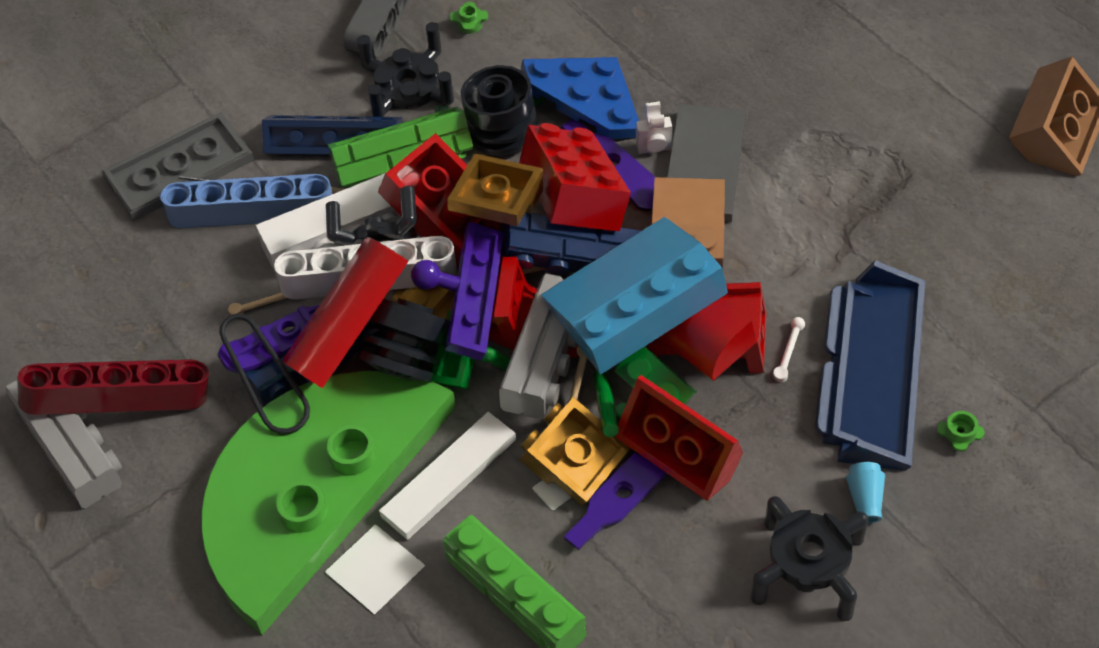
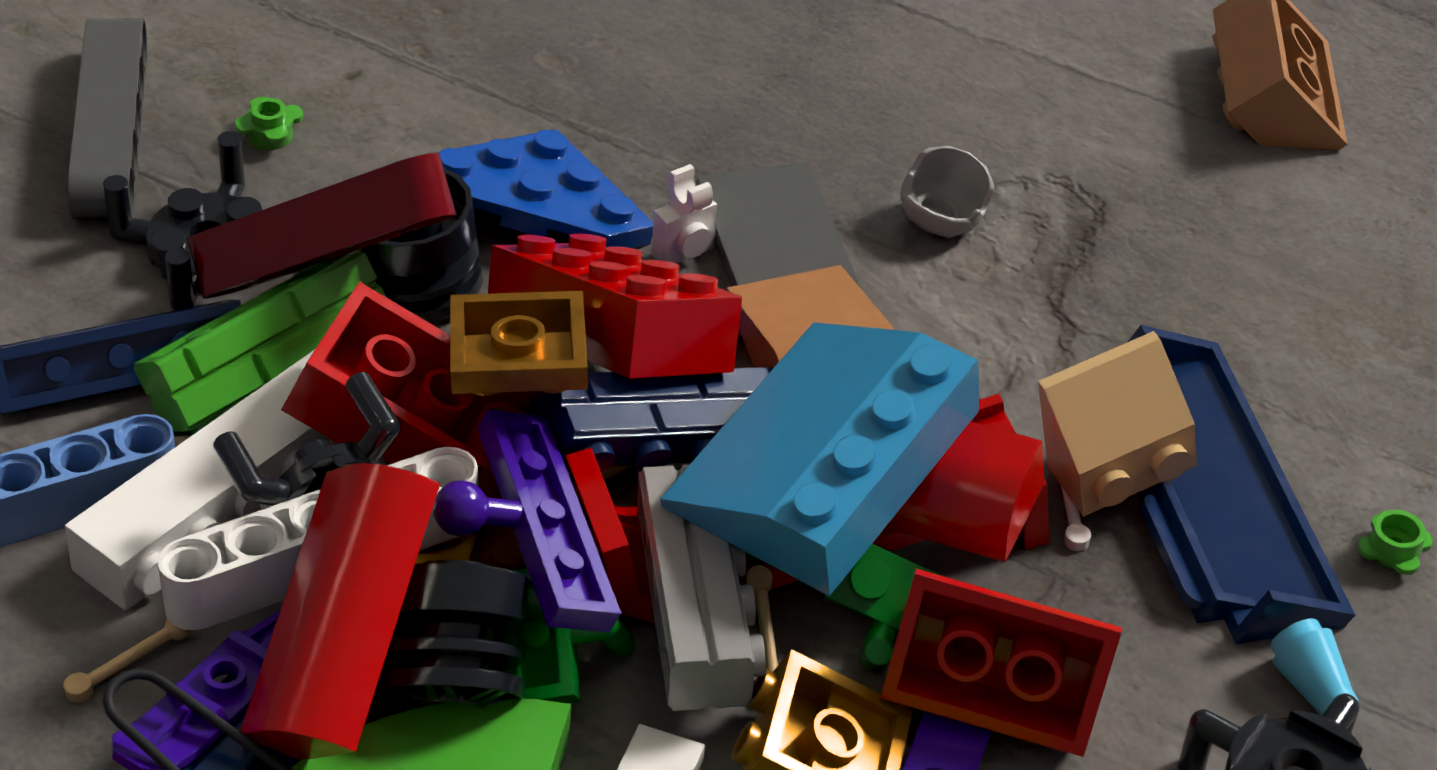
camera: 30 degrees left, 10 degrees down
(443, 92) = (322, 225): none -> dark red beam
(605, 404) = (838, 651): green piece -> none
(811, 148) = (946, 191): none -> light grey hair
(818, 318) = (1116, 424): none -> tan slope

